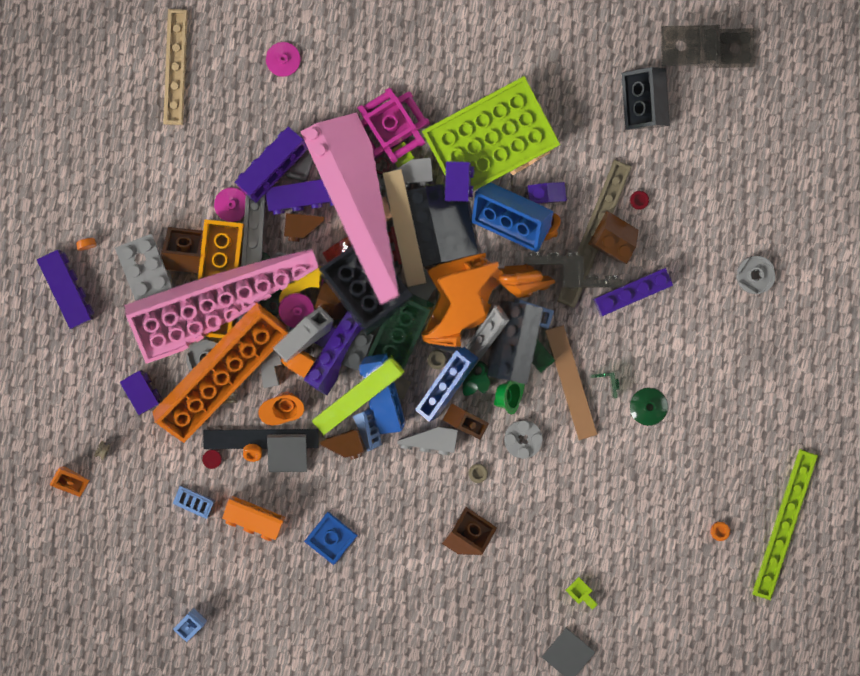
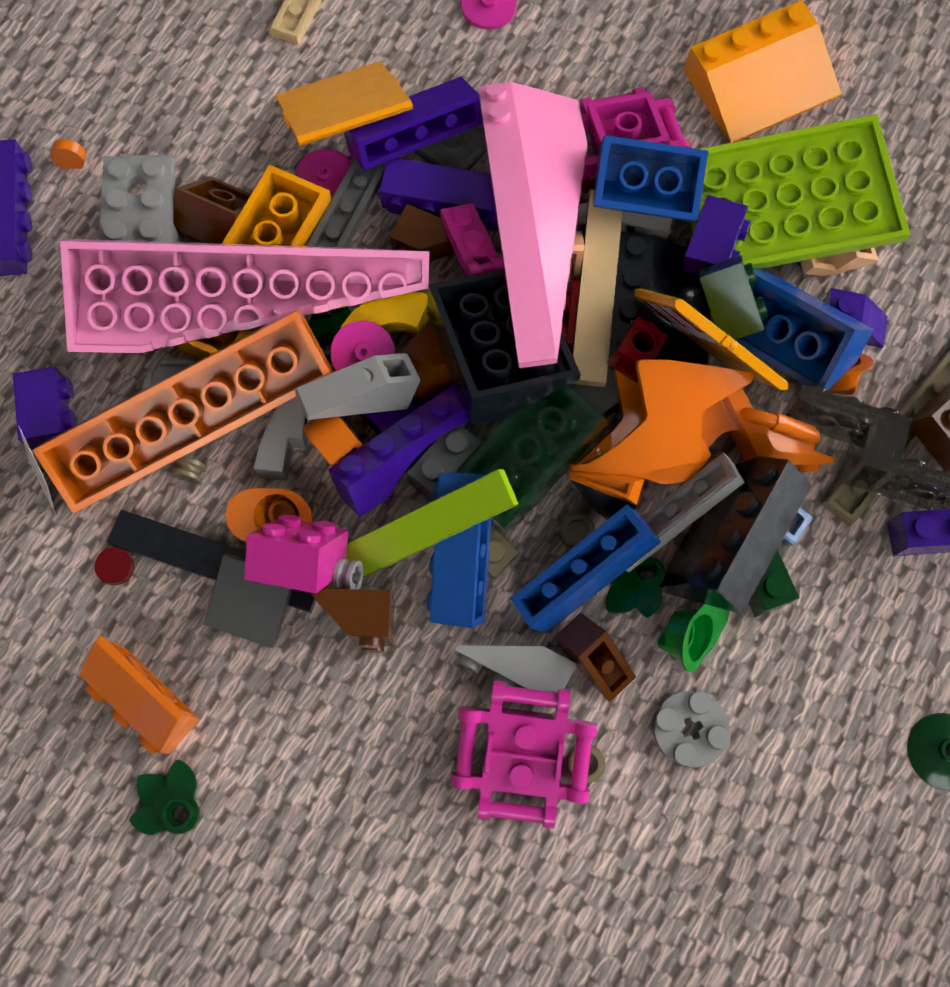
camera: 10 degrees right, 15 degrees down
(153, 425) = (37, 471): none -> white sticker
(210, 502) = (67, 651): medium blue slope -> none
(227, 164) = (342, 103): none -> light orange piece
(252, 452) = (189, 578): orange tile -> none
(282, 559) = (162, 797): none -> dark green plate
(304, 426) = (295, 553): none -> dark pink brick
(329, 228) = (470, 240): none -> dark pink plate
(330, 538) = (266, 790): blue tile -> none
(332, 427) = (347, 574): none -> light grey bush
(366, 426) = (410, 598): medium blue slope -> none
(412, 162) = (649, 178): none -> blue slope
(430, 268) = (626, 354): none -> dark red brick
(446, 480) = (524, 754): none -> dark pink brick
(456, 54) = (763, 72): none -> light orange slope
(469, 534) = (533, 879): reddish brown slope -> none
(470, 246) = (709, 336): none -> light orange piece
(476, 217) = (732, 297): none -> dark green brick
(571, 382) = (811, 659): medium nougat tile -> none
(614, 383) = (892, 683): clear green bracket -> none

